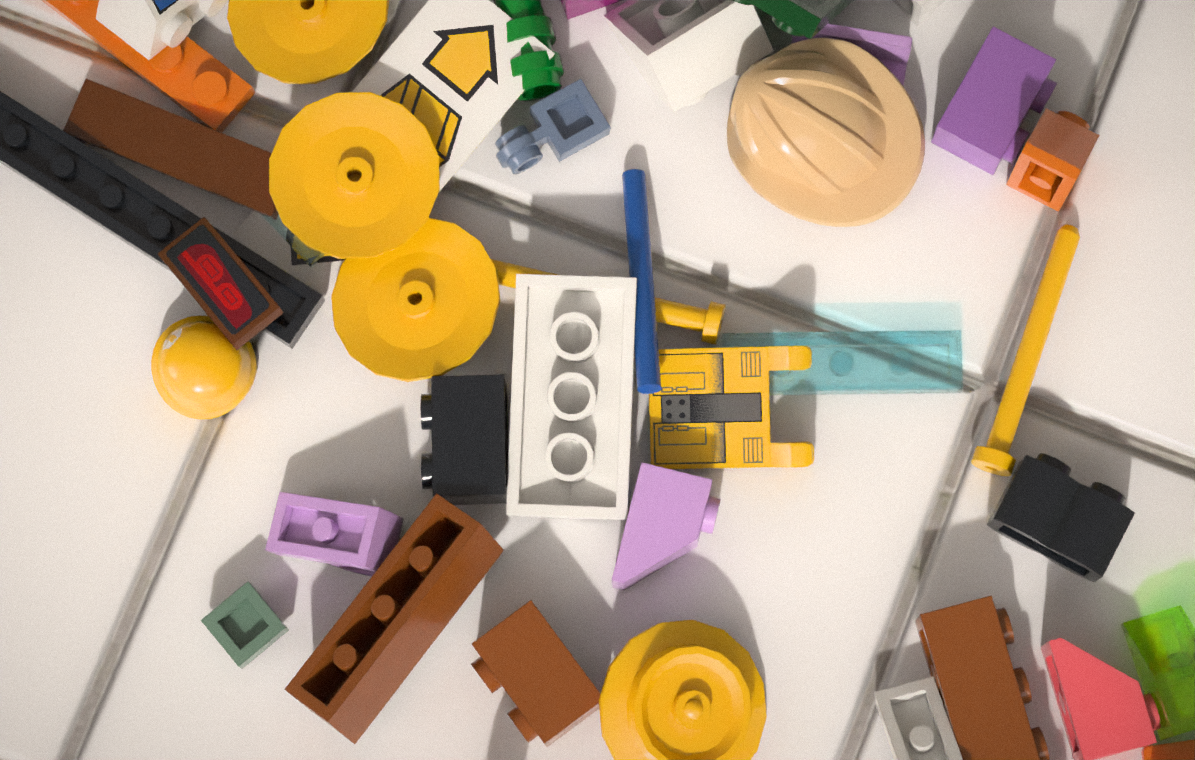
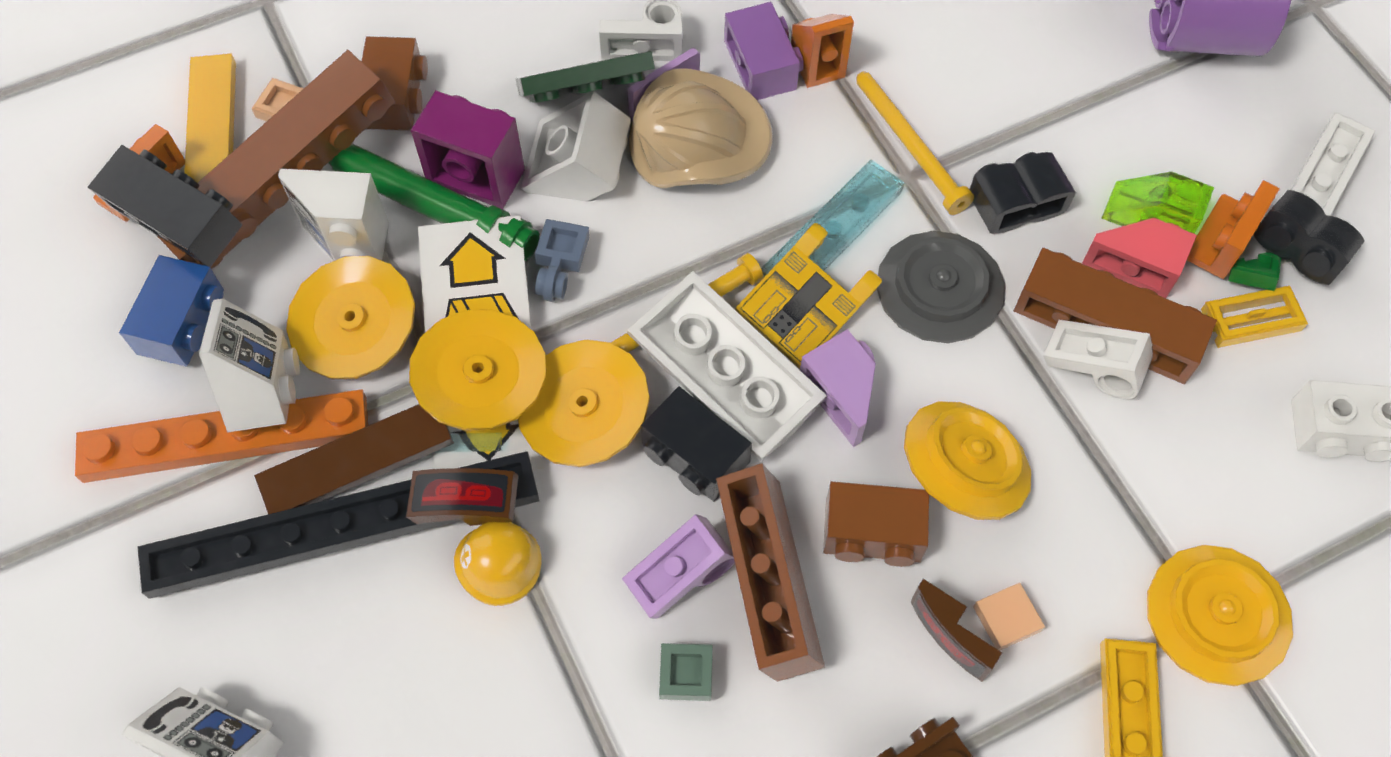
camera: 55 degrees left, 15 degrees down
(641, 267) = (678, 271): blue bar -> none
(876, 525) = (940, 287): none -> dark grey piece

